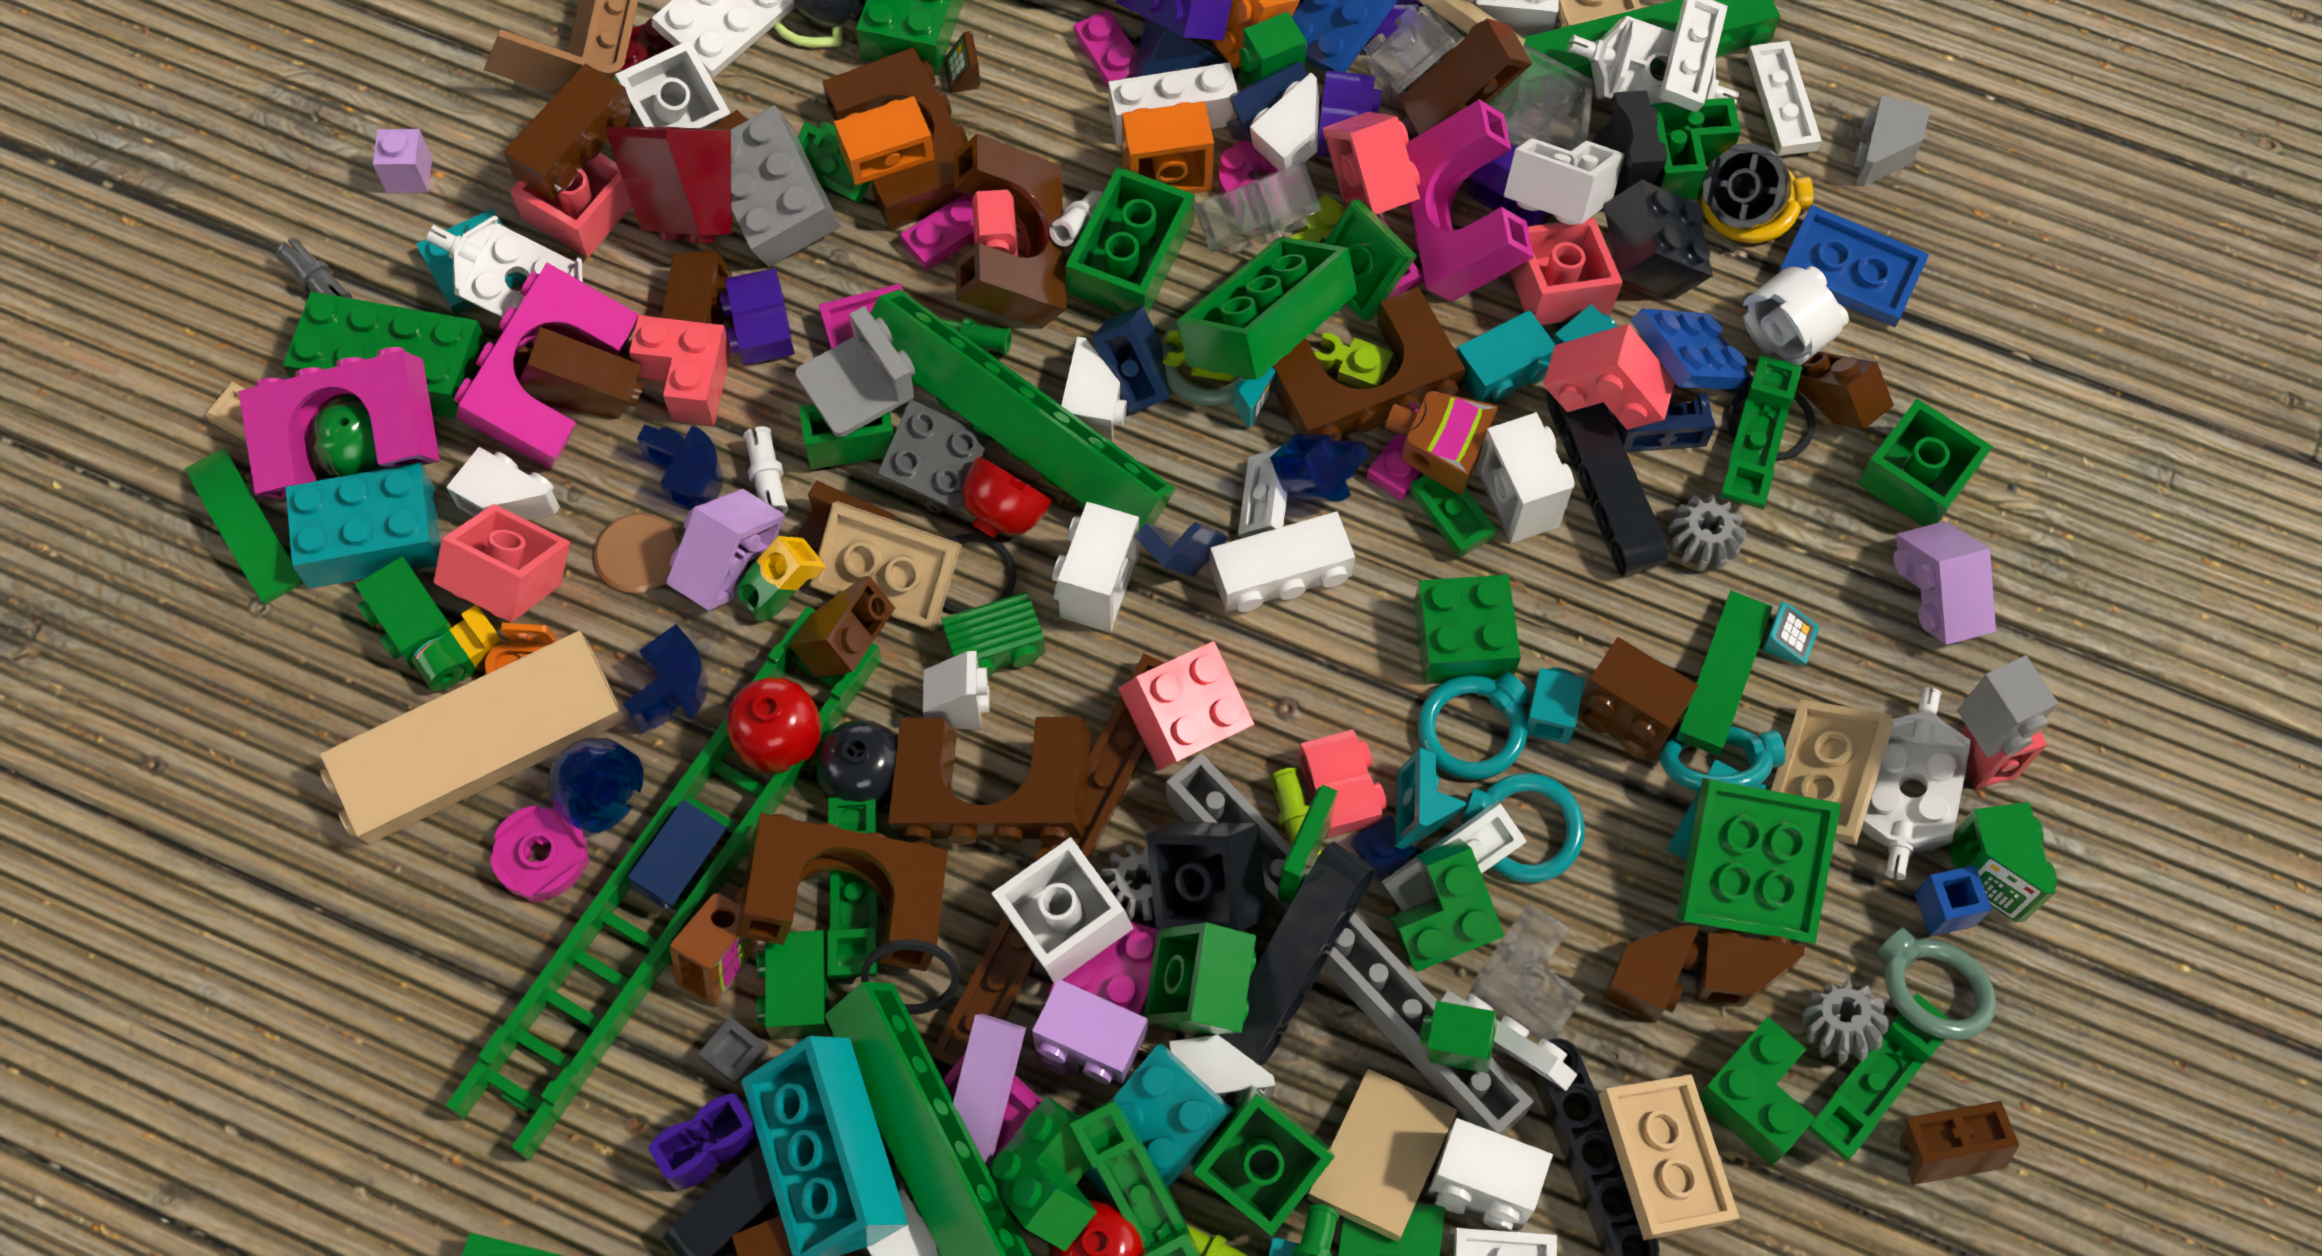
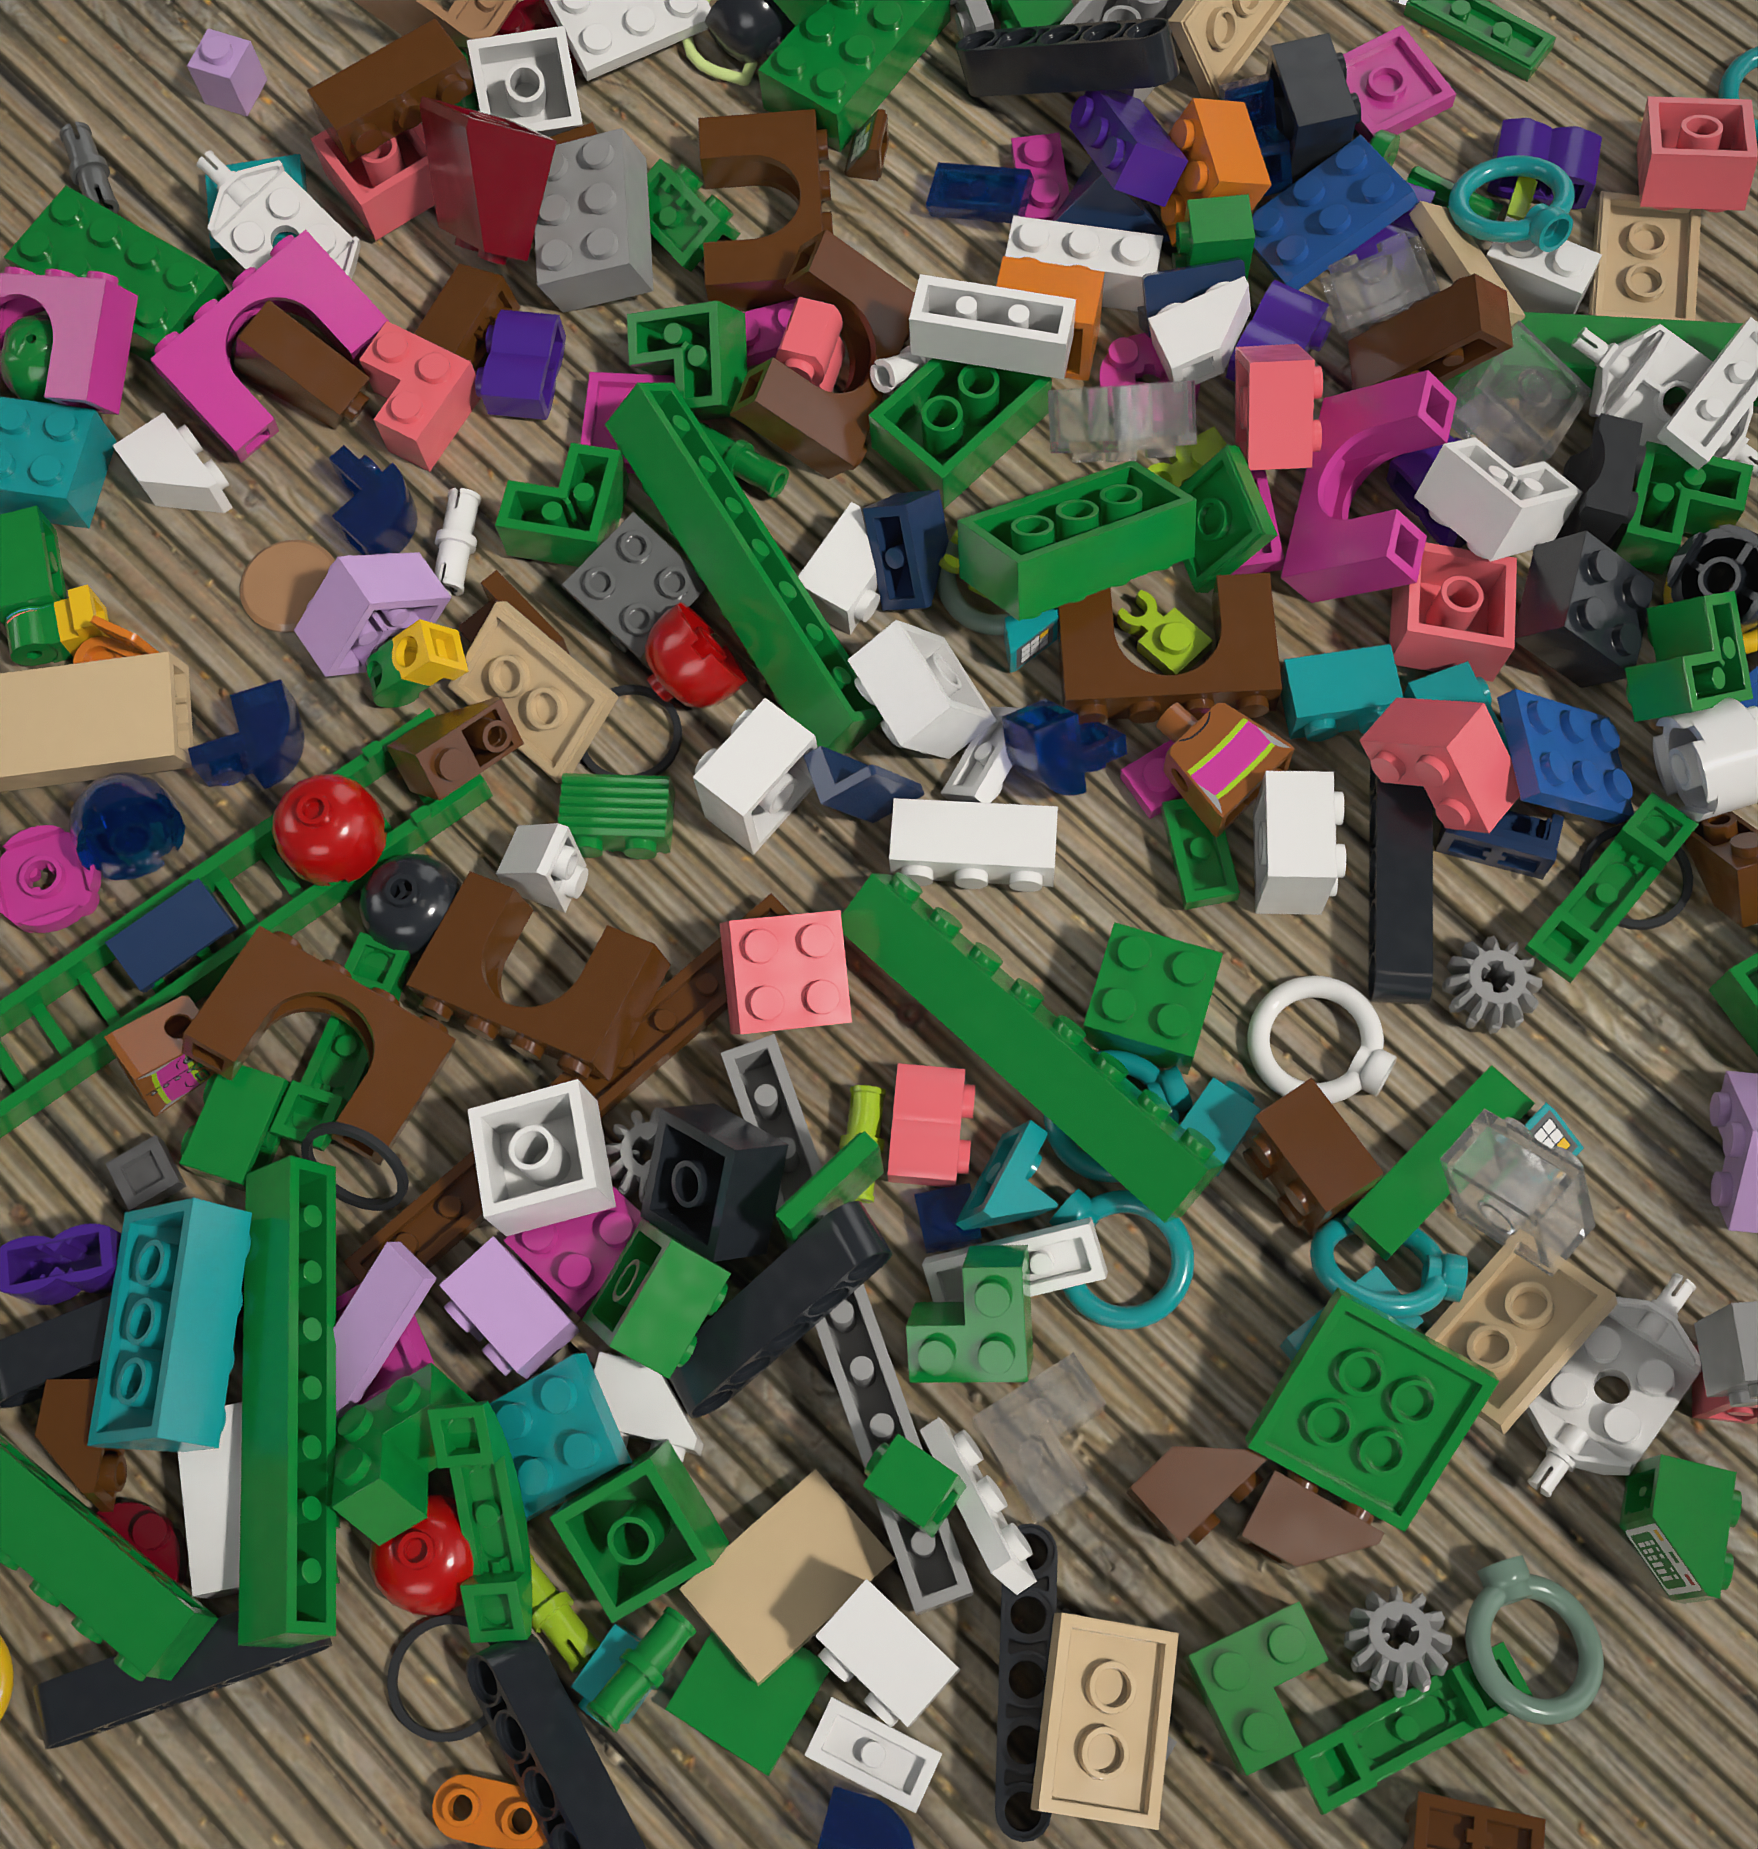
camera: 30 degrees right, 5 degrees up
(501, 562) = (130, 548): coral brick -> none
(858, 377) = (577, 469): light grey bracket -> none
(884, 140) = (729, 206): orange brick -> none
(902, 254) = (700, 346): none -> green brick
(1068, 73) = (979, 192): none -> clear blue plate
(1139, 167) = (992, 326): none -> white brick
(1197, 460) = (920, 691): none -> white brick
(1394, 693) = (1030, 1046): none -> green brick
(1644, 623) = (1371, 1063): none -> white piece
(1751, 247) = (1696, 658): none -> green brick
(1794, 667) = (1519, 1190): none -> clear brick
(1952, 900) = (1595, 1548): blue brick -> none

